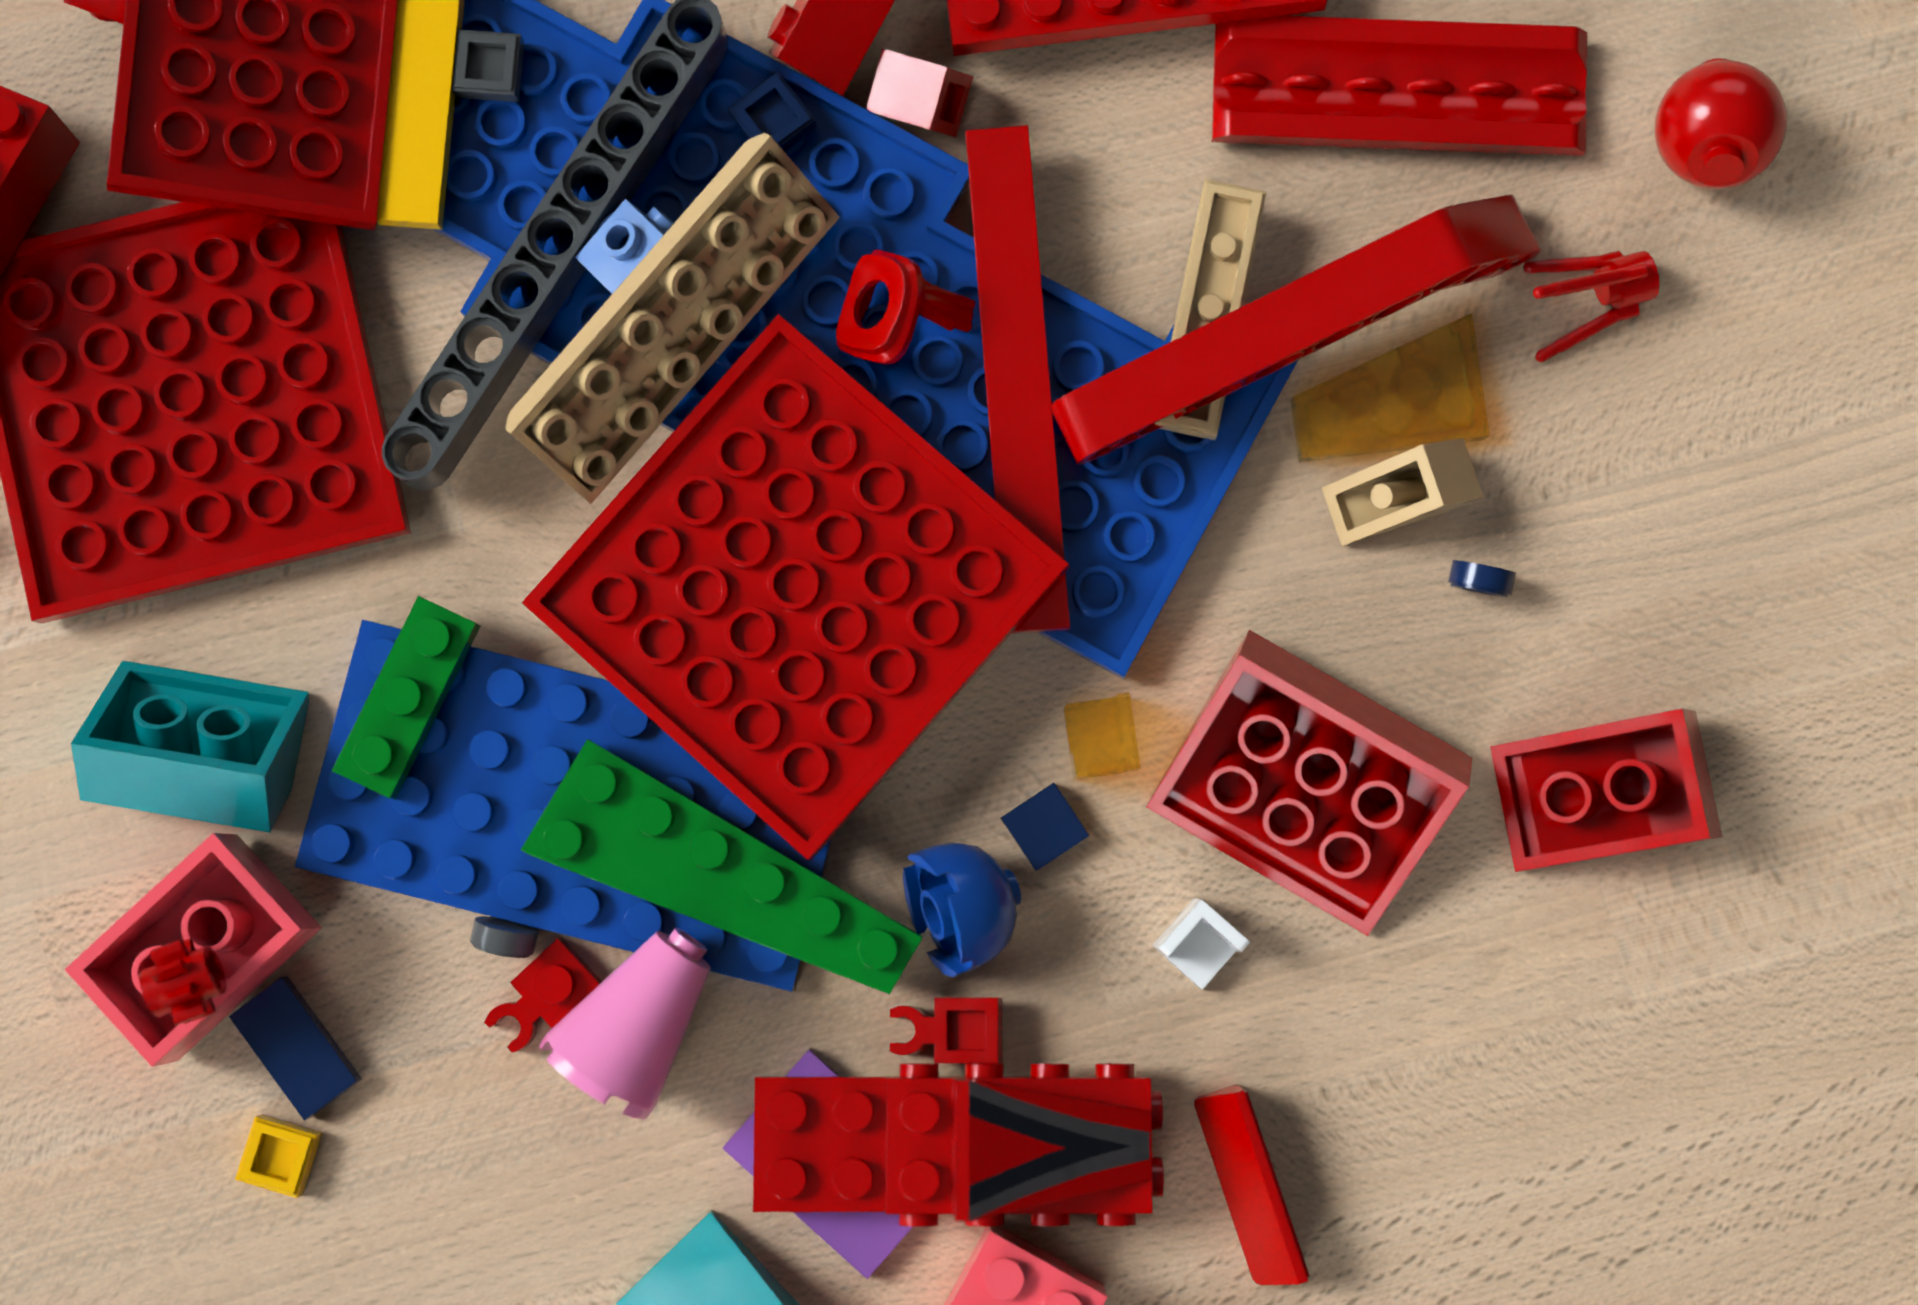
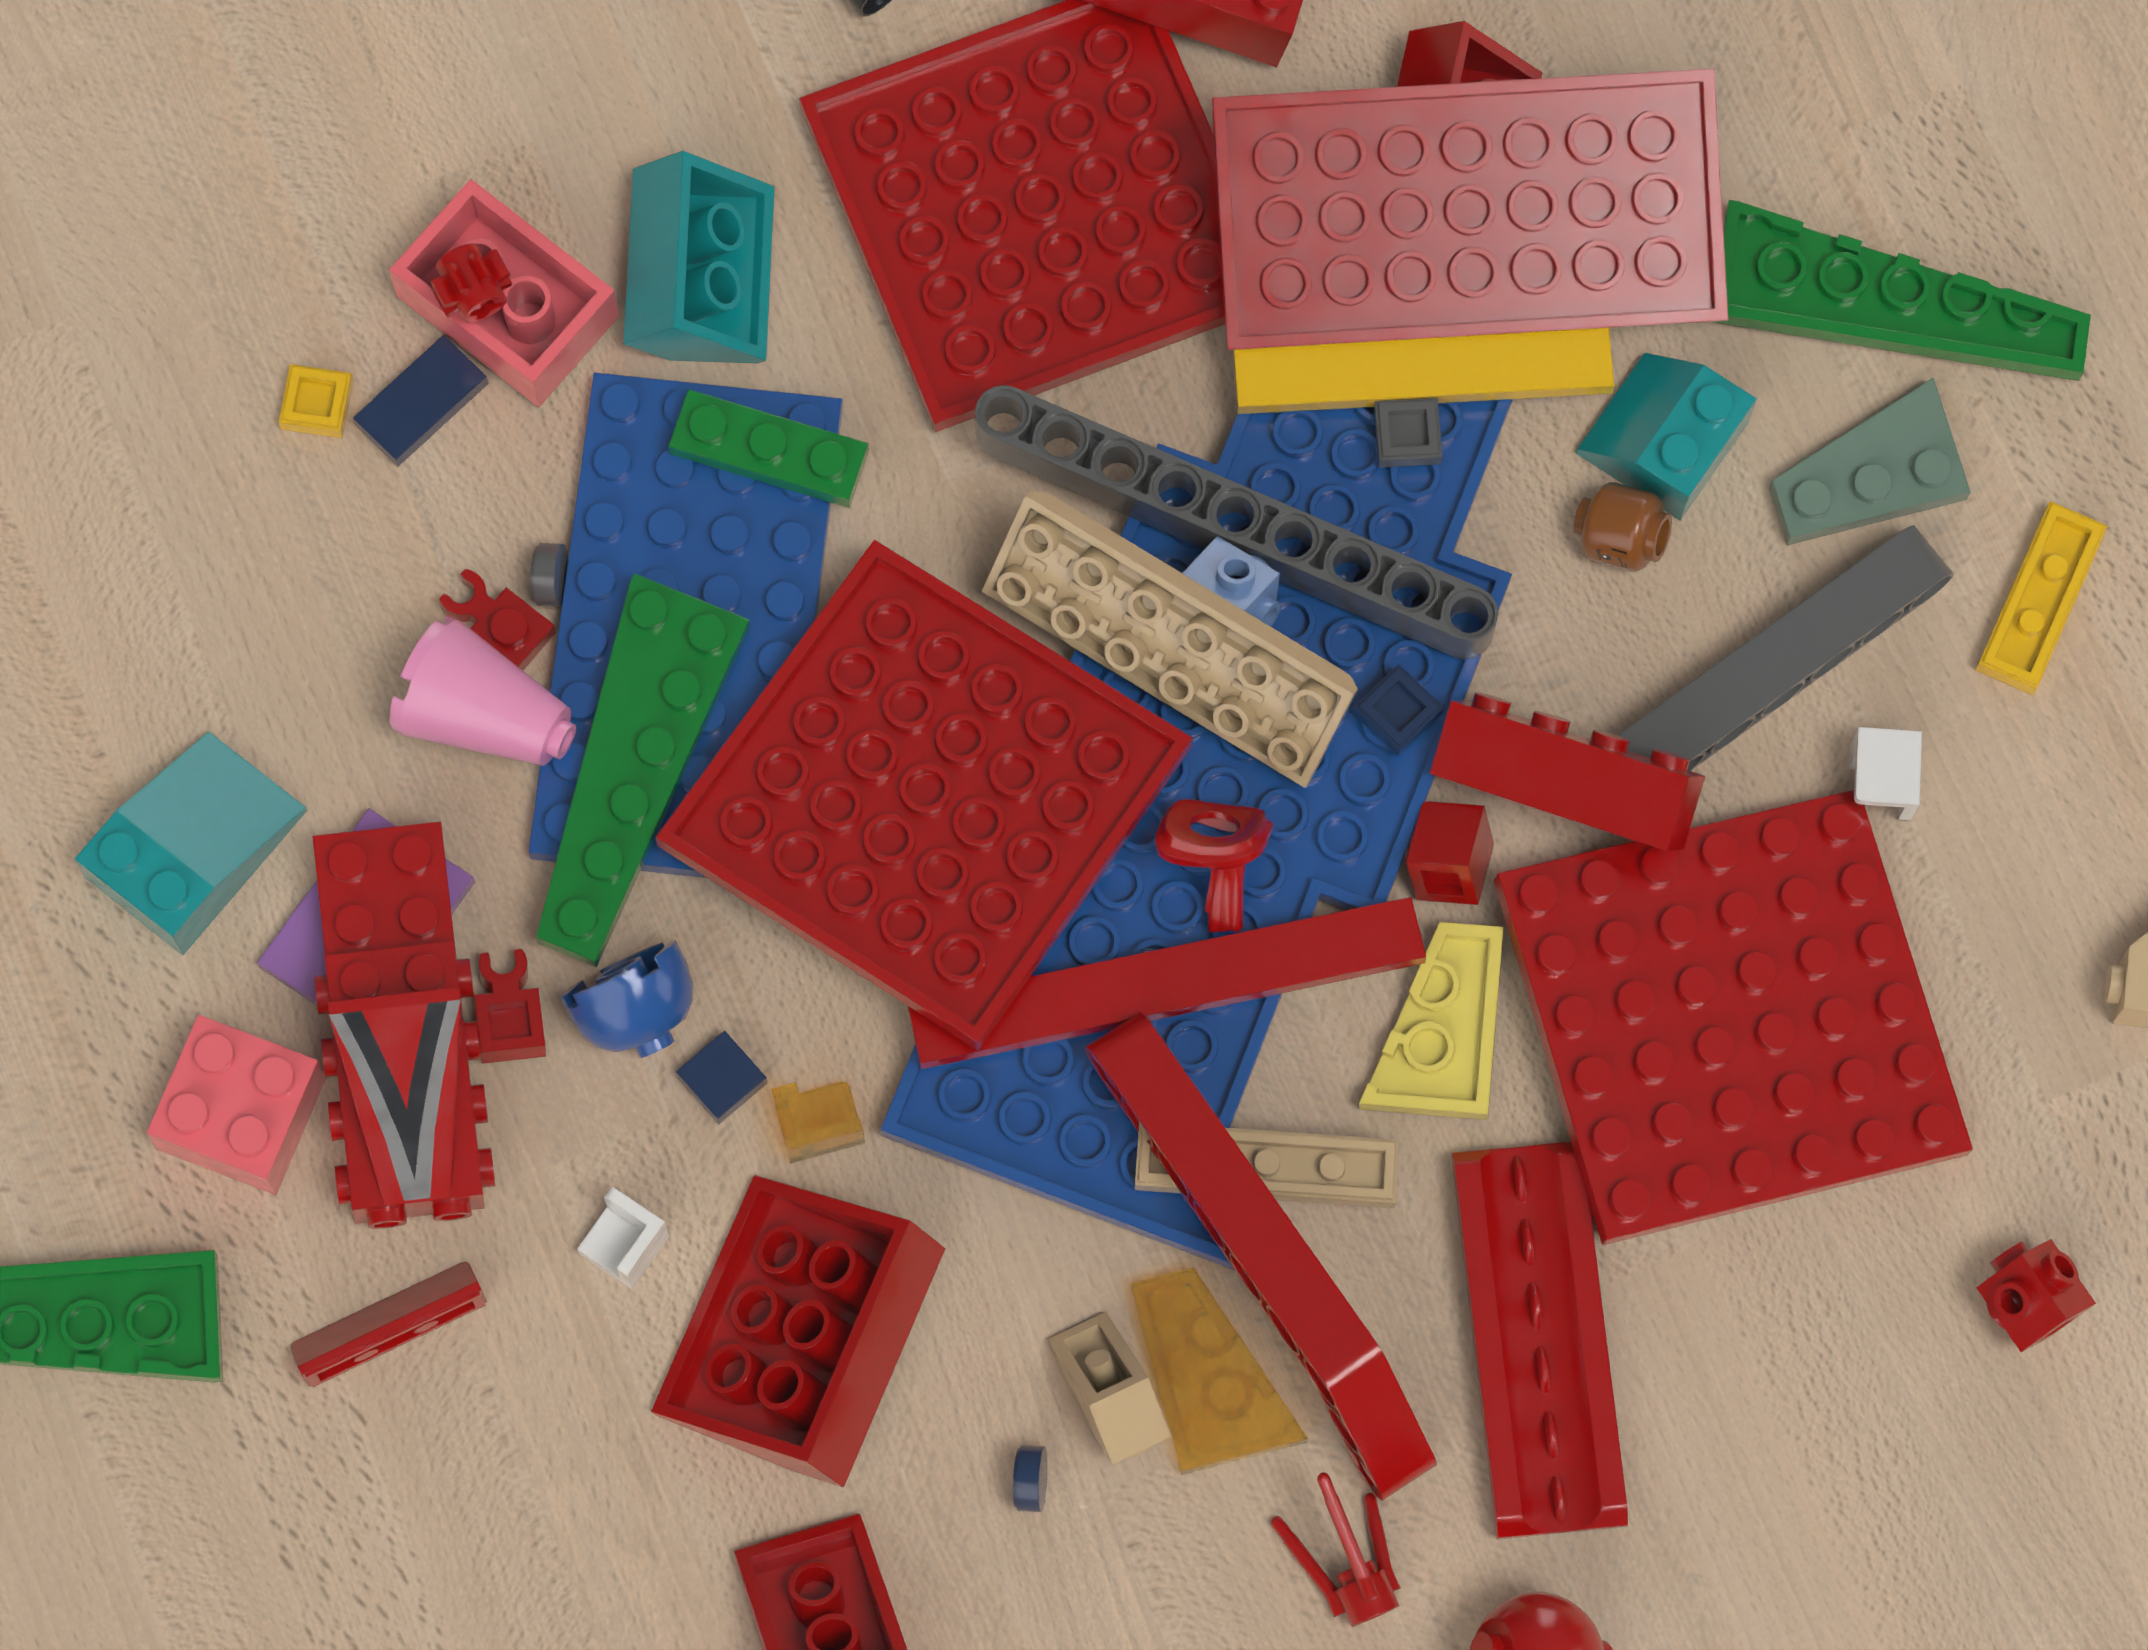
camera: 80 degrees right, 10 degrees down
(1092, 126) = (1445, 1035): none -> light yellow wing

